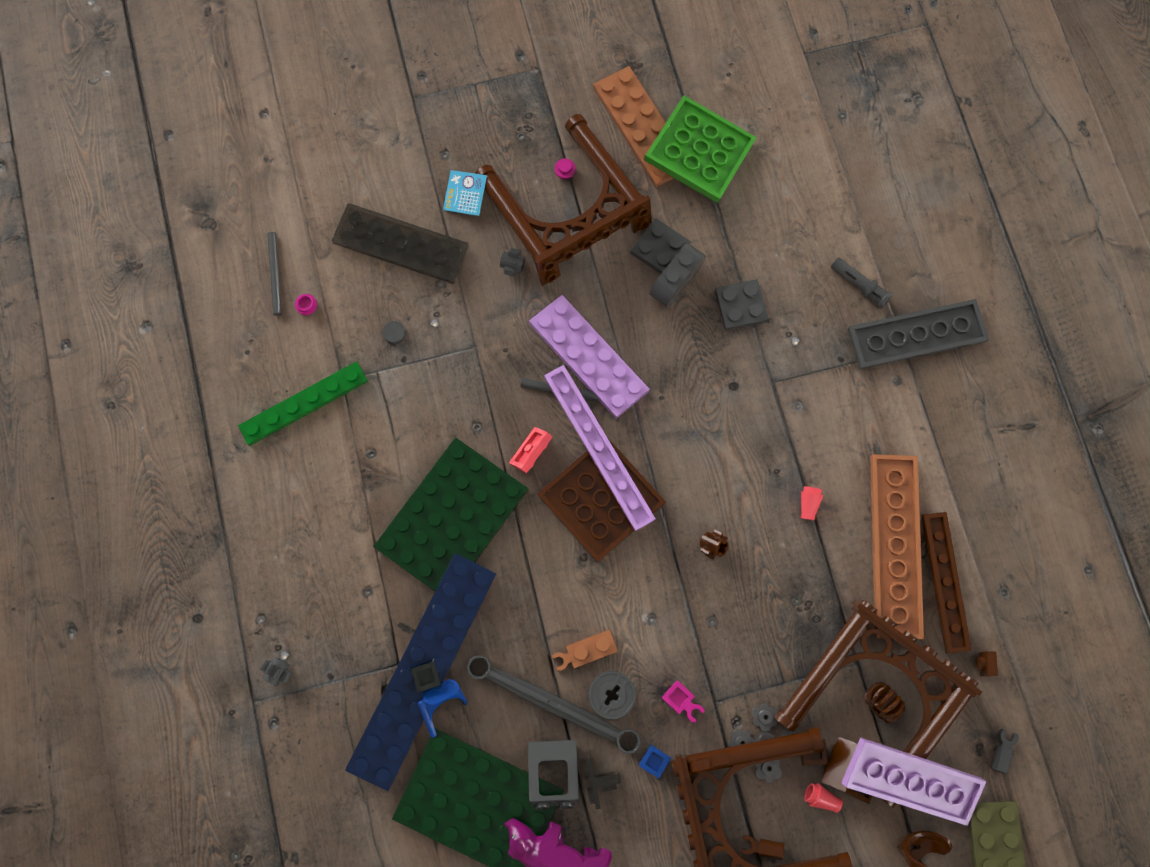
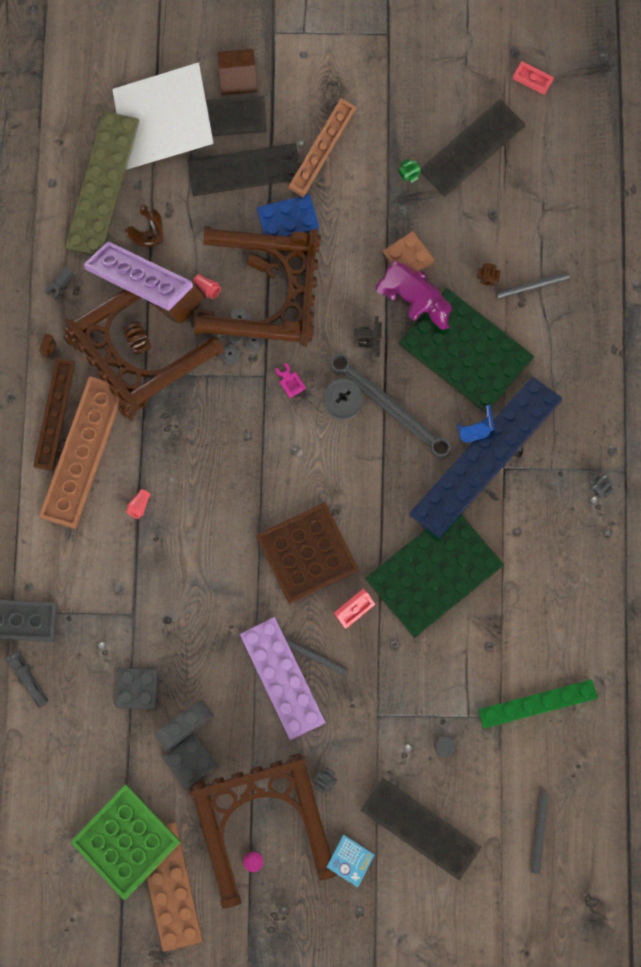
camera: 160 degrees left, 0 degrees up
(306, 304) = (517, 794): dark pink plate -> none
(425, 676) = (483, 446): pearl dark grey plate -> none
(553, 751) = (400, 368): dark grey window -> none
(587, 650) = (352, 438): nougat plate -> none
(599, 448) = (297, 592): lavender plate -> none
(654, 761) = (324, 344): blue plate -> none
(714, 544) = (227, 491): reddish brown gear -> none

